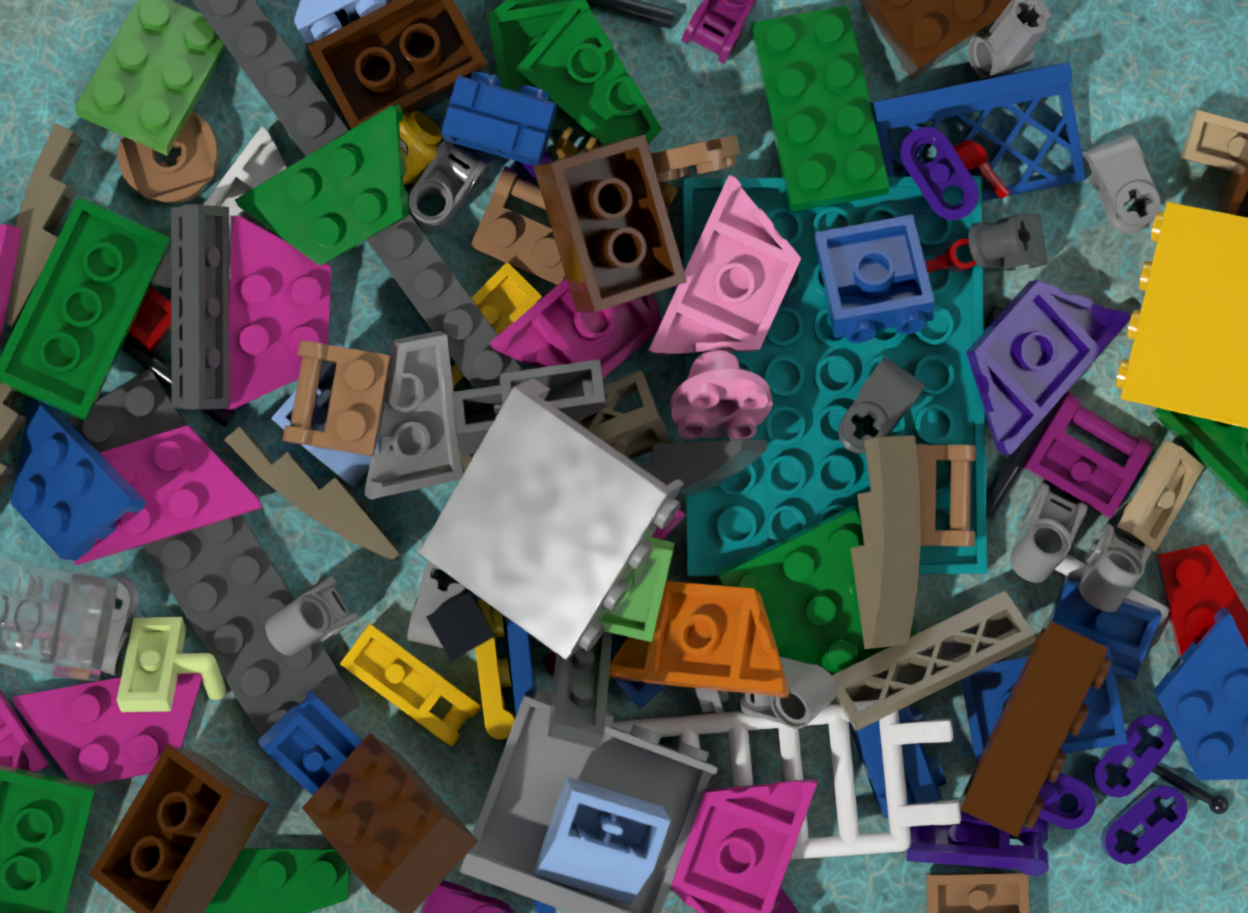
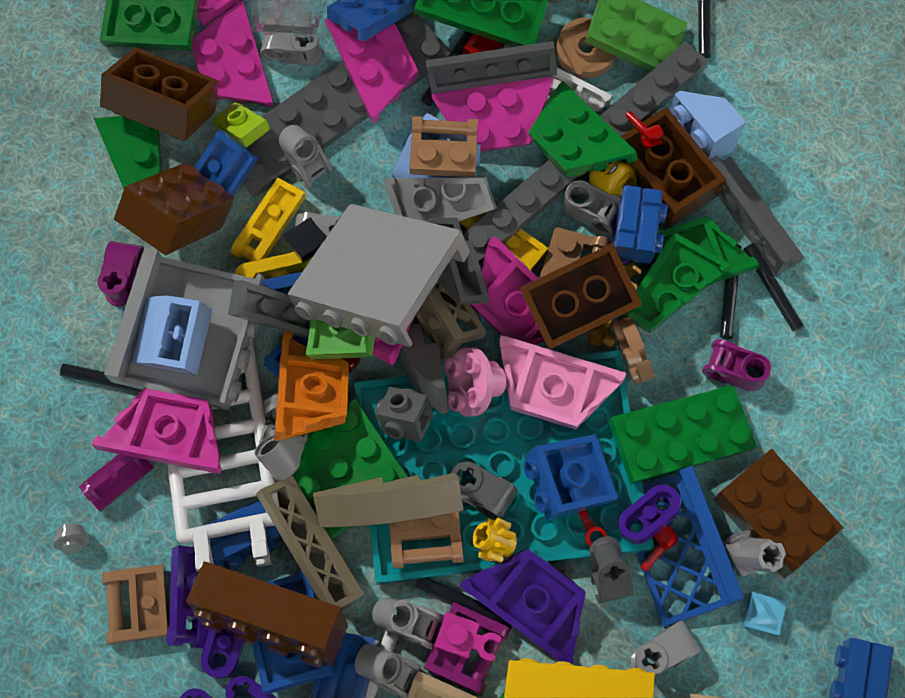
camera: 85 degrees right, 15 degrees down
(154, 663) = (268, 70): yellowish green plate -> none
(242, 714) = (241, 124): none -> lime plate
(330, 505) = (379, 157): dark tan slope -> none
(359, 78) = (649, 136): none -> red hand
(756, 506) = (404, 414): none -> dark grey brick
(954, 397) = (494, 540): none -> yellow gear
(1078, 461) = (460, 636): none -> dark pink plate
(1083, 38) = (764, 614): none -> medium azure tile

